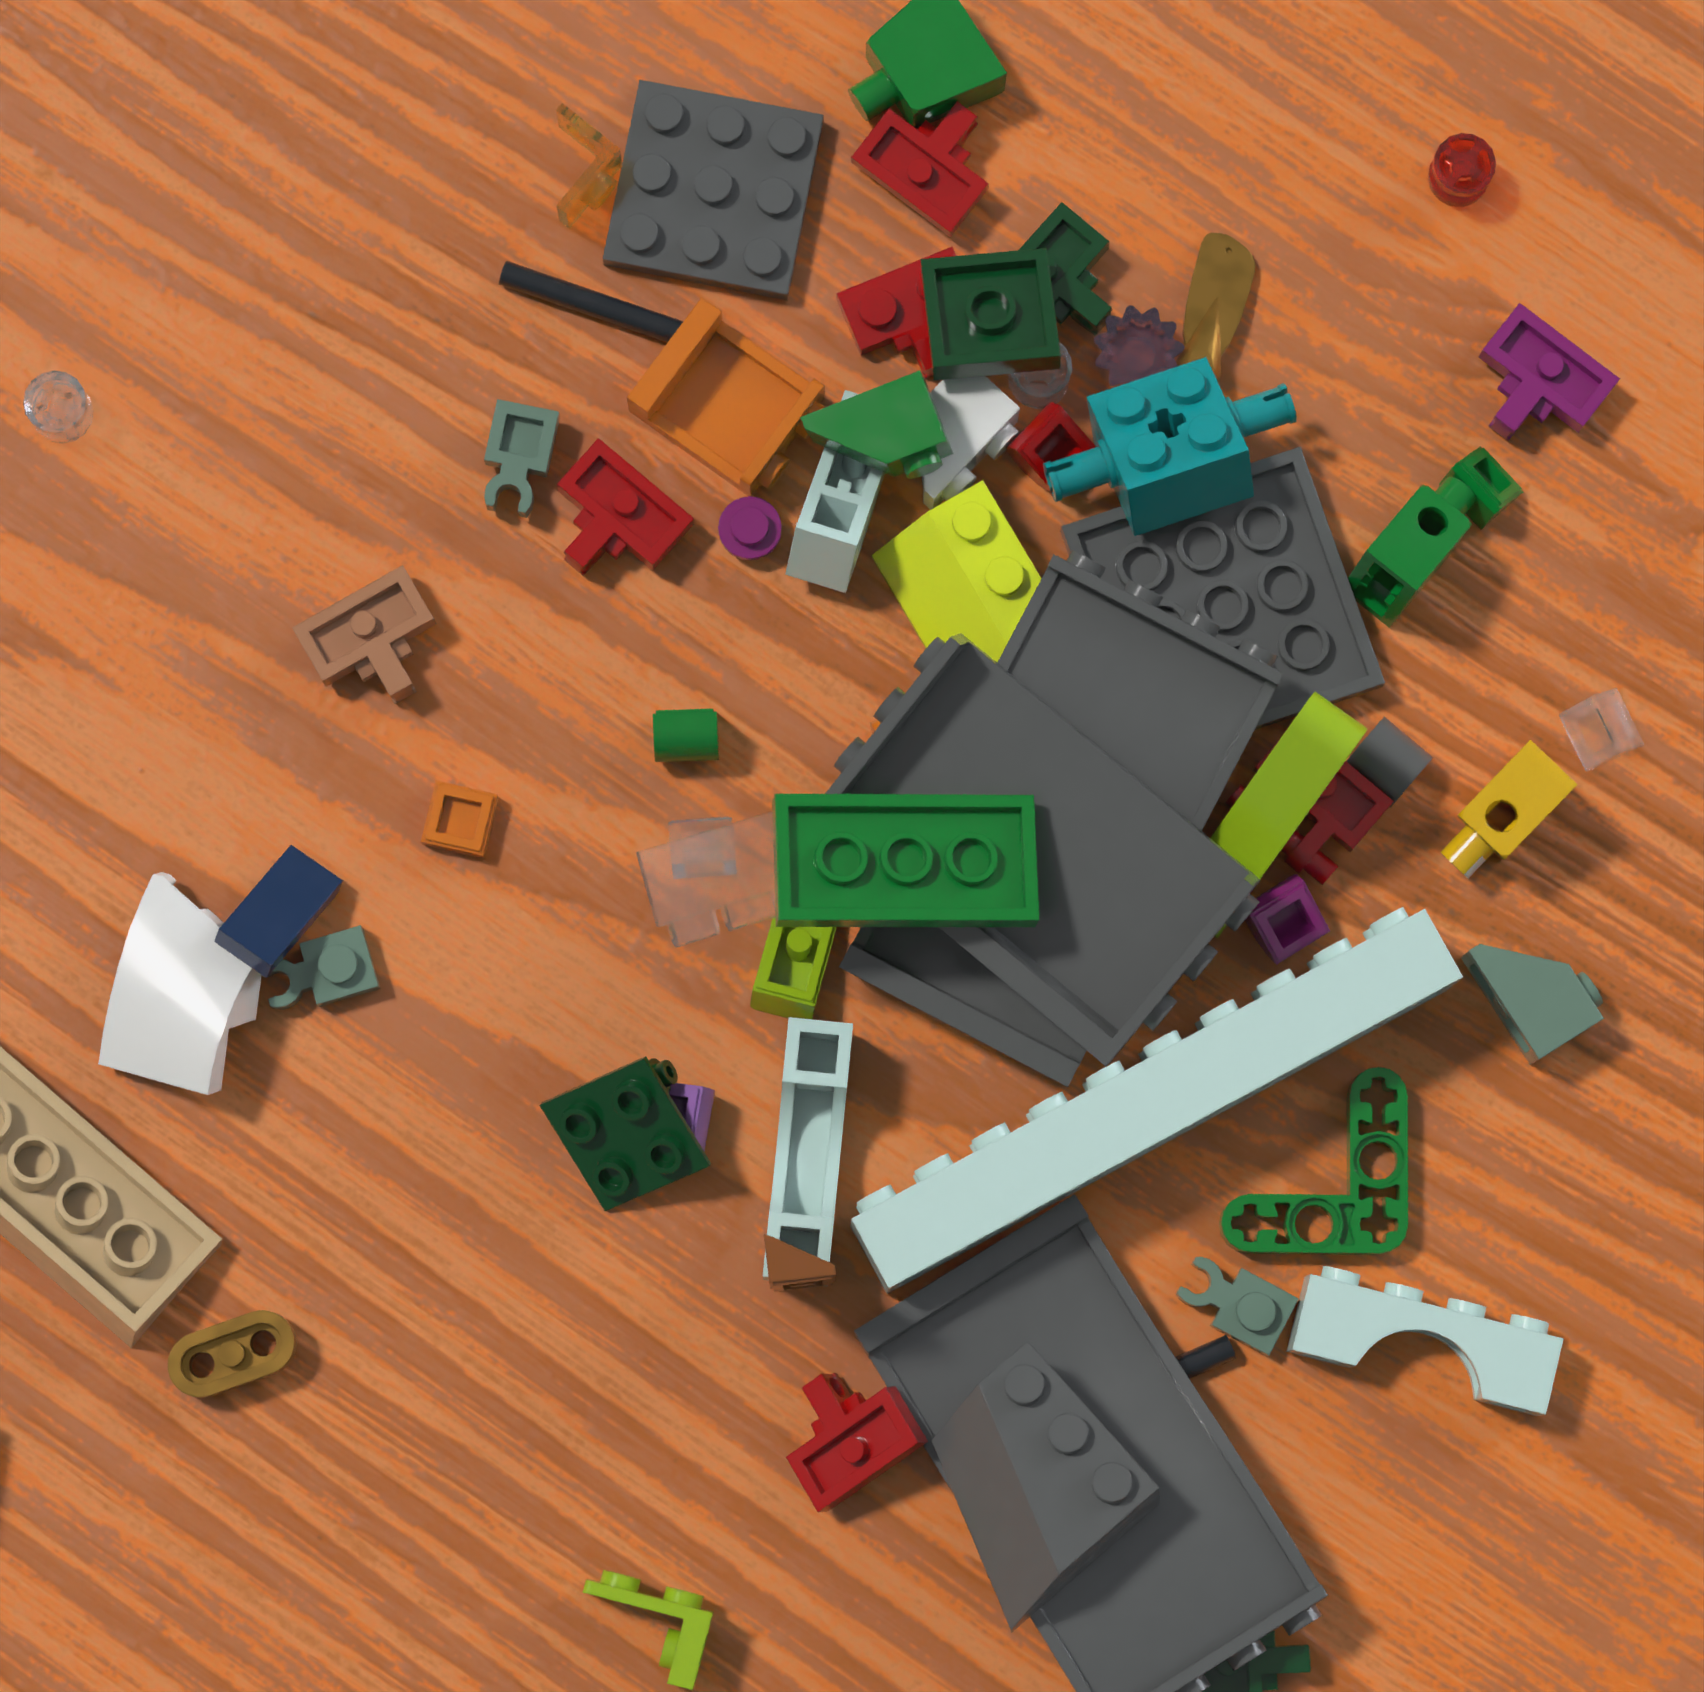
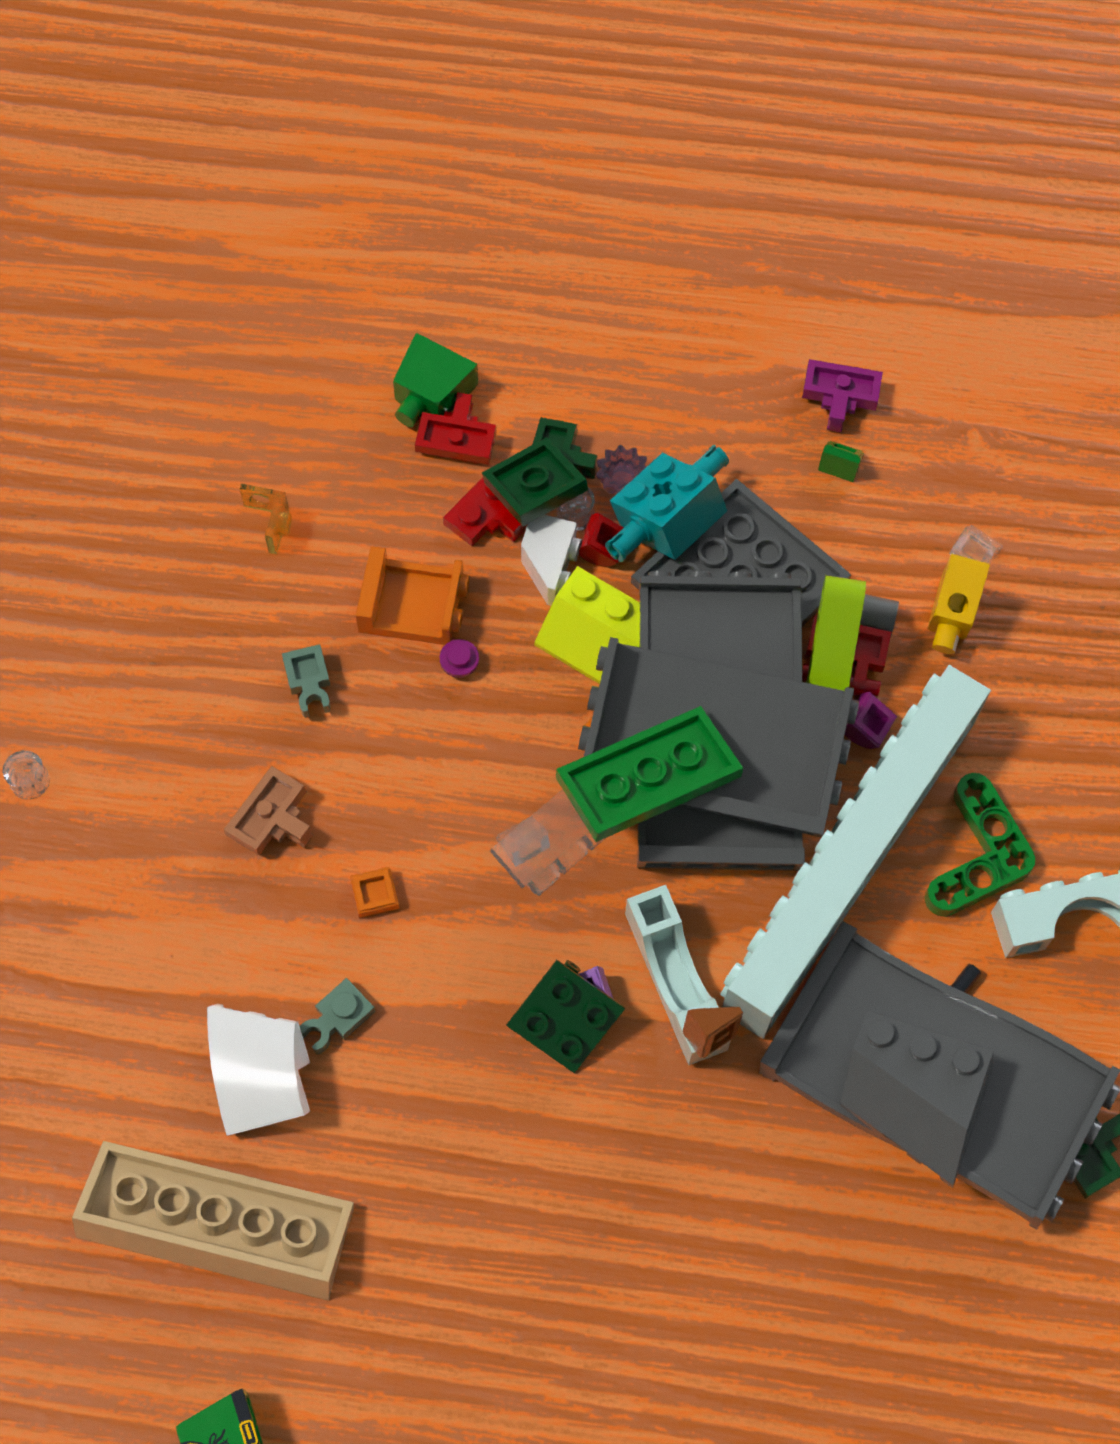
camera: 25 degrees left, 15 degrees down
(233, 1354) = (393, 1269): pearl gold plate -> none
(278, 911) = (293, 991): dark blue tile -> none
(588, 301) = (306, 584): black bar -> none
(619, 511) = (381, 682): red hinge -> none
(682, 1648) = (761, 1307): lime bracket -> none
(685, 735) = (481, 781): green brick -> none
(713, 190) = (347, 498): dark grey plate -> none
(792, 970) = (609, 876): lime slope -> none
(834, 520) = (503, 615): light aqua slope -> none
(851, 1440) = (793, 1129): red hinge -> none
(885, 428) = (509, 562): green slope -> none
(1216, 299) = (647, 428): pearl gold piece -> none
(1247, 1308) = (969, 942): sand green plate -> none
(1411, 549) = (829, 489): green torso -> none
(1468, 158) = (735, 305): clear red wheel -> none
(1535, 997) = (1028, 698): sand green slope -> none

